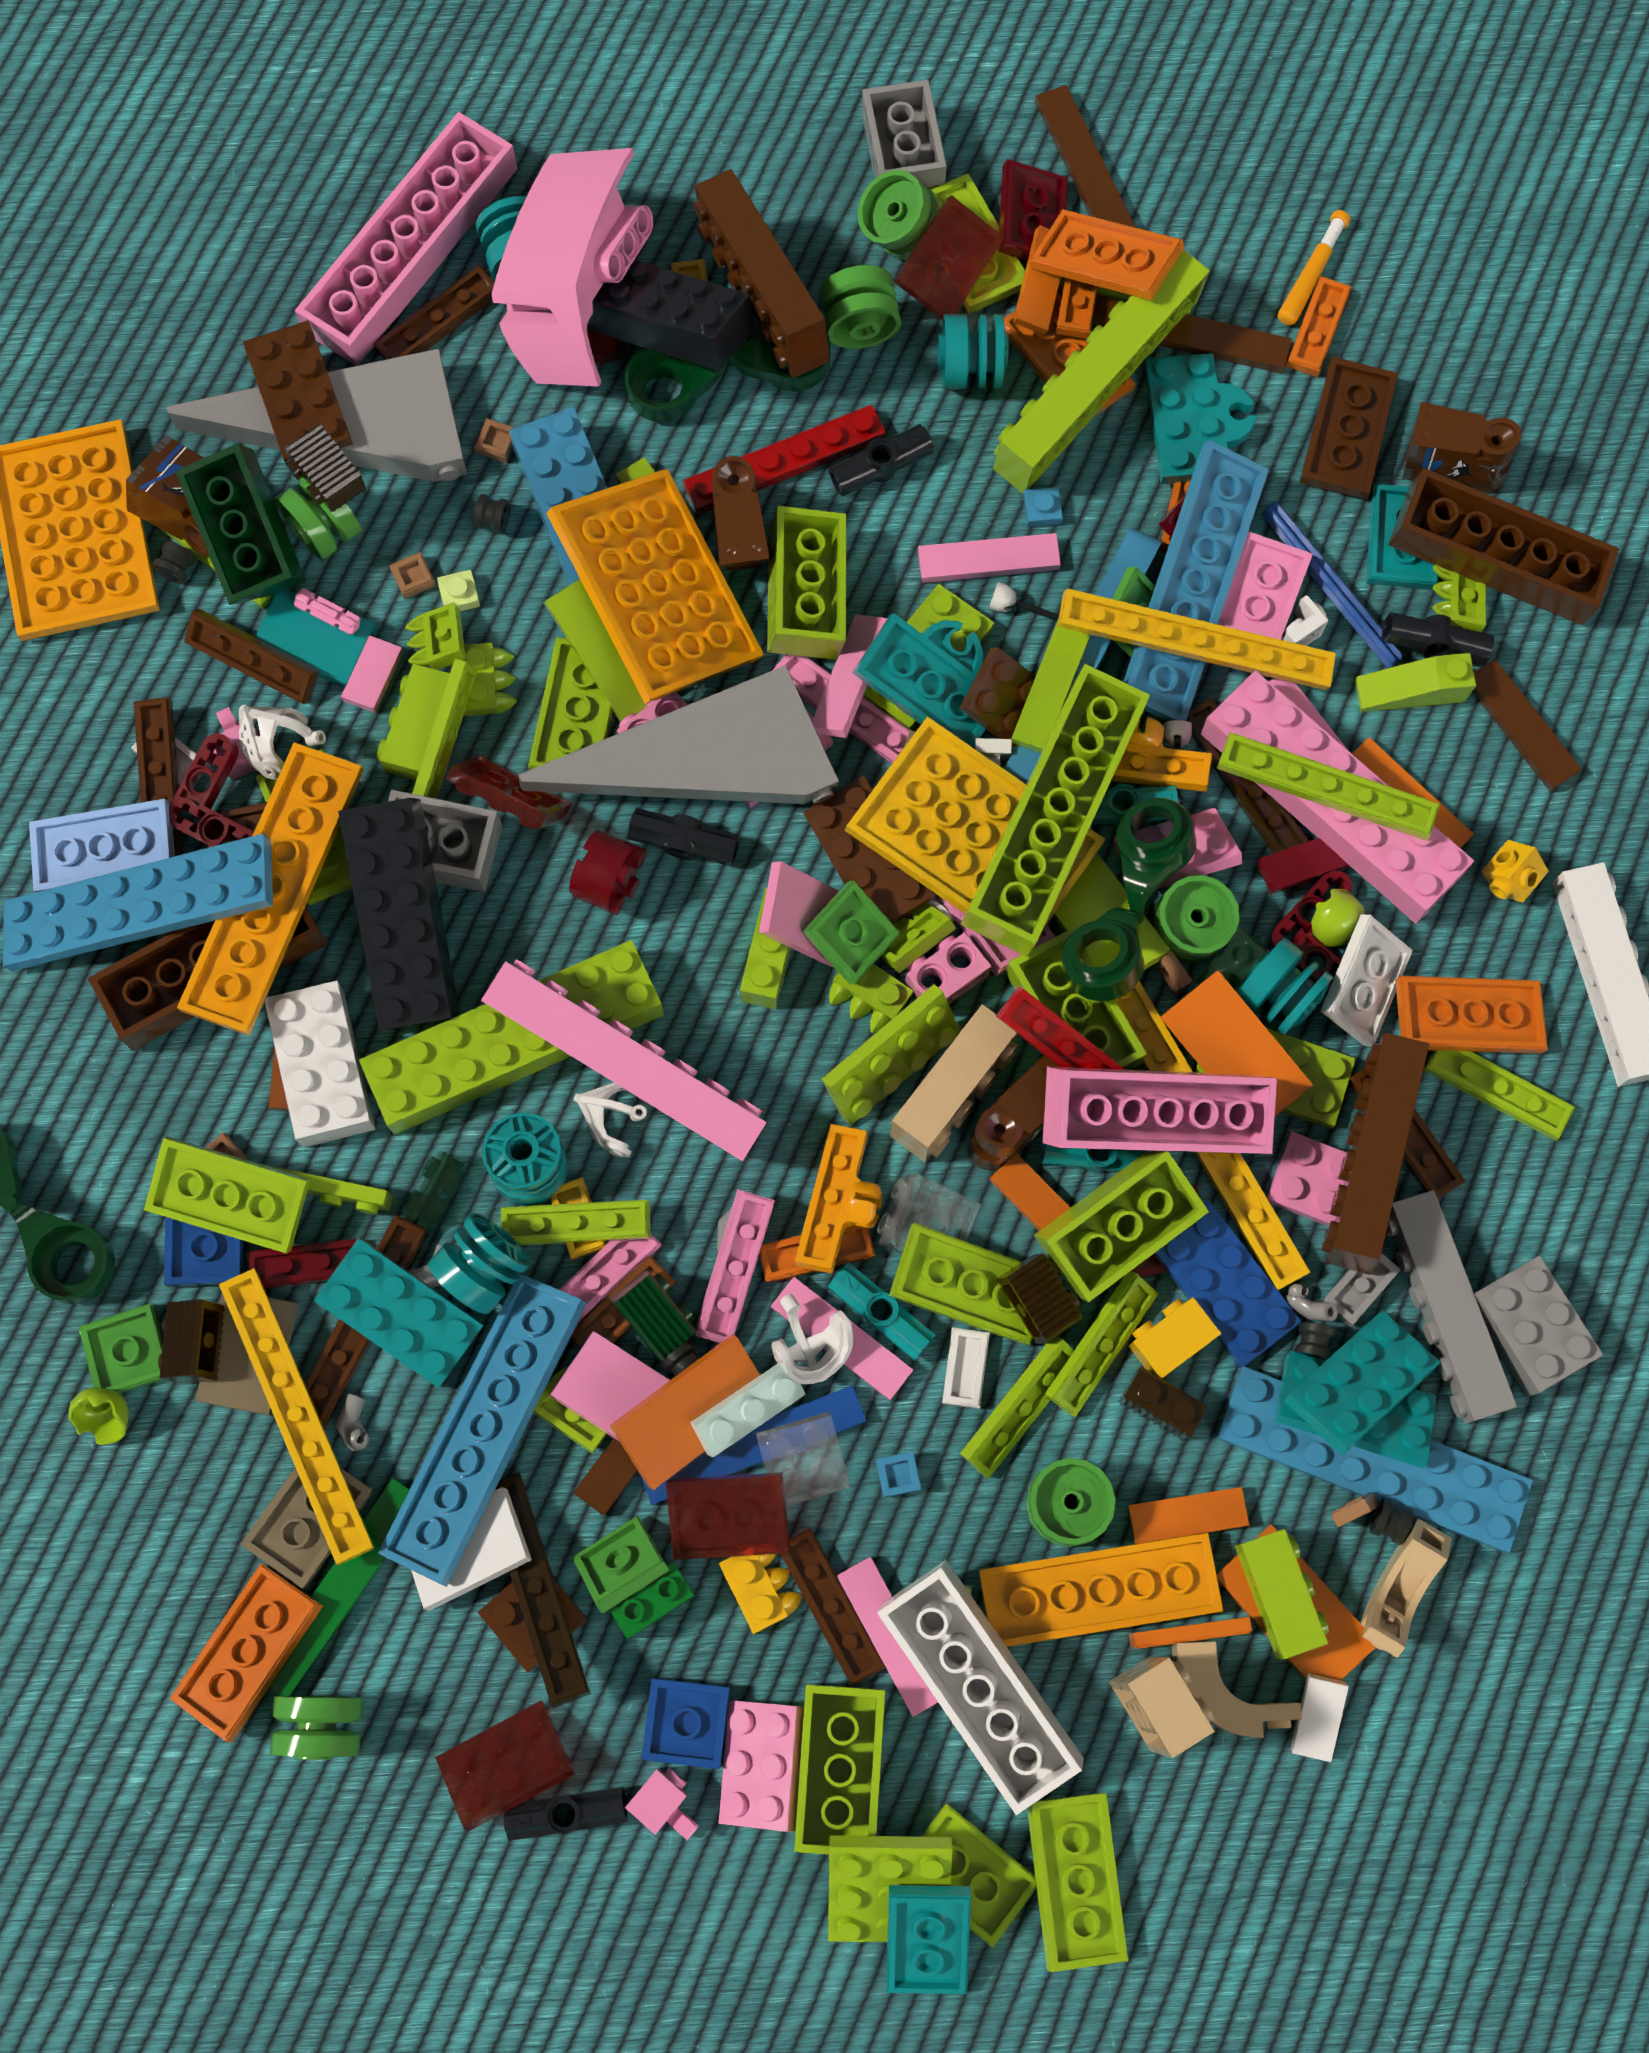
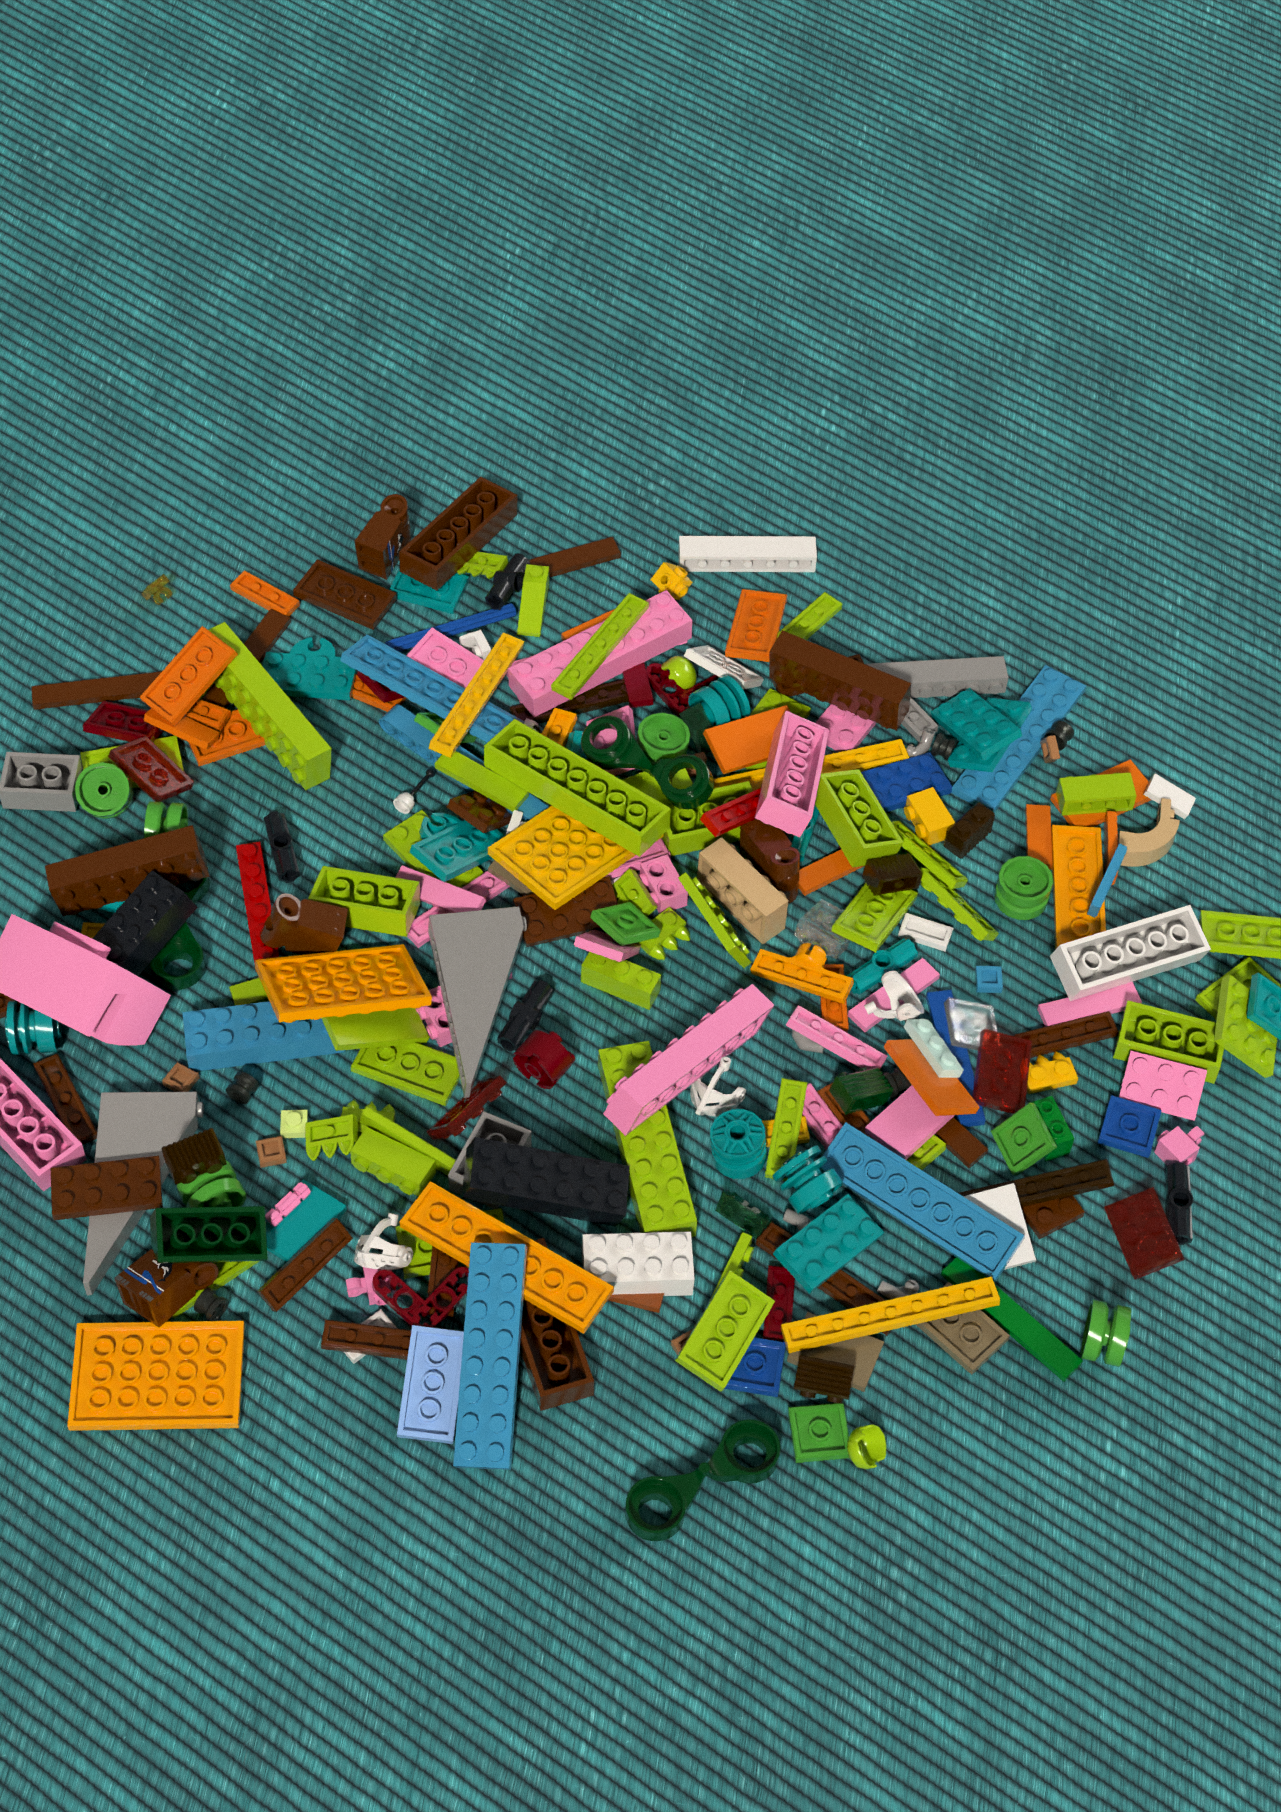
camera: 80 degrees left, 20 degrees down
(246, 1652) = (1047, 1380): orange tile -> none
(372, 674) = (343, 1189): bright pink tile -> none
(972, 351) = (223, 773): teal wheel -> none
(988, 558) = (371, 805): bright pink tile -> none
(1042, 507) = (344, 768): dark azure plate -> none
(1103, 1631) = (1107, 880): none -> dark azure tile
(1163, 1706) = (1158, 854): tan brick -> none
(1280, 184) = (157, 587): none -> clear yellow tile
(1310, 274) = (233, 594): light orange piece -> none
(1403, 1585) = (1098, 739): tan arch -> none
(1535, 1327) = (956, 636): light grey brick -> none

